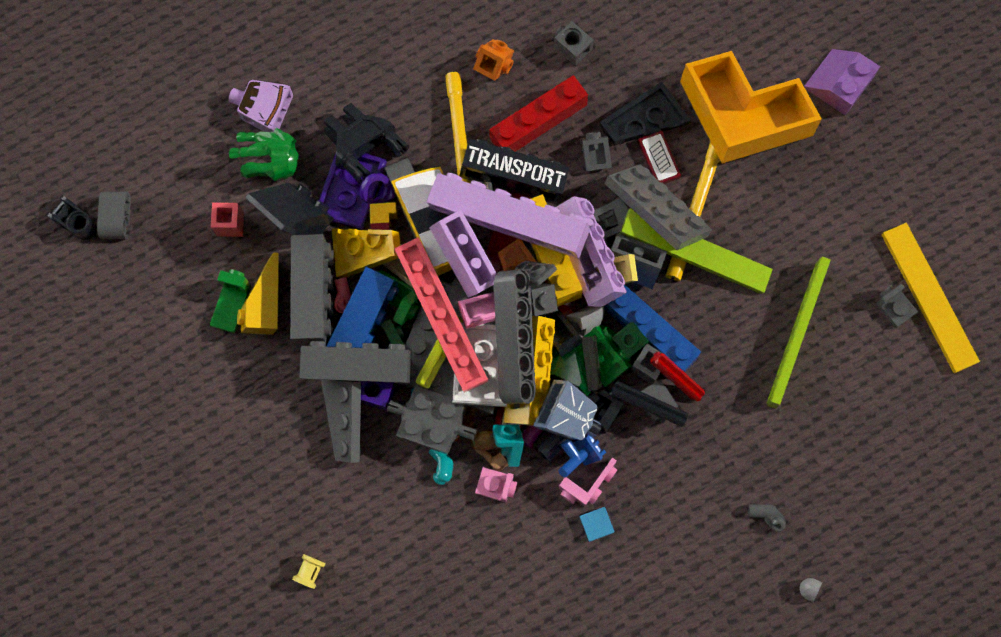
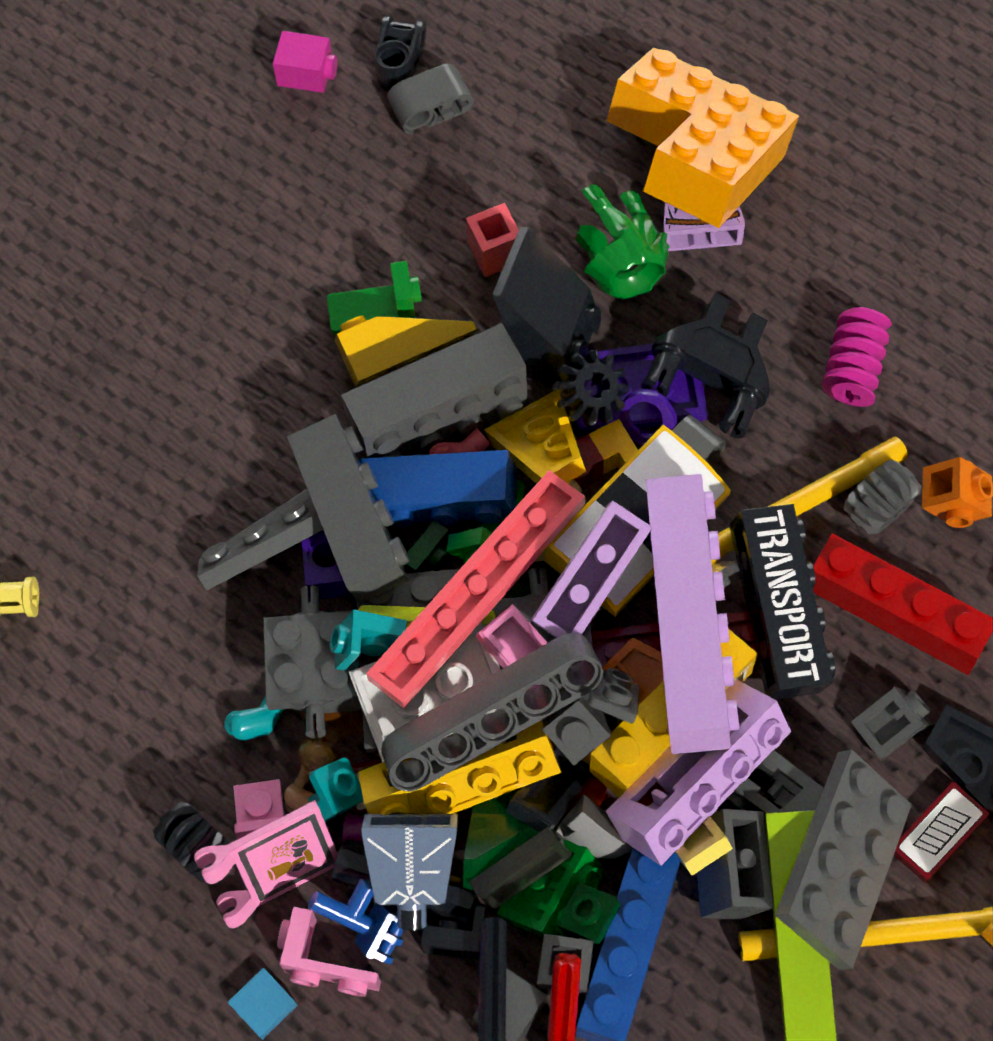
camera: 65 degrees right, 10 degrees down
(50, 273) = (304, 61): none -> dark pink brick
(224, 72) = (709, 134): none -> light orange piece
(339, 209) = (600, 372): none -> black gear
(393, 72) = (856, 356): none -> dark pink piece
(436, 385) = (364, 633): none -> teal bracket
(479, 96) = (882, 497): none -> dark grey gear
(499, 523) = (184, 833): none -> black gear
(529, 488) = (270, 861): none -> bright pink flag

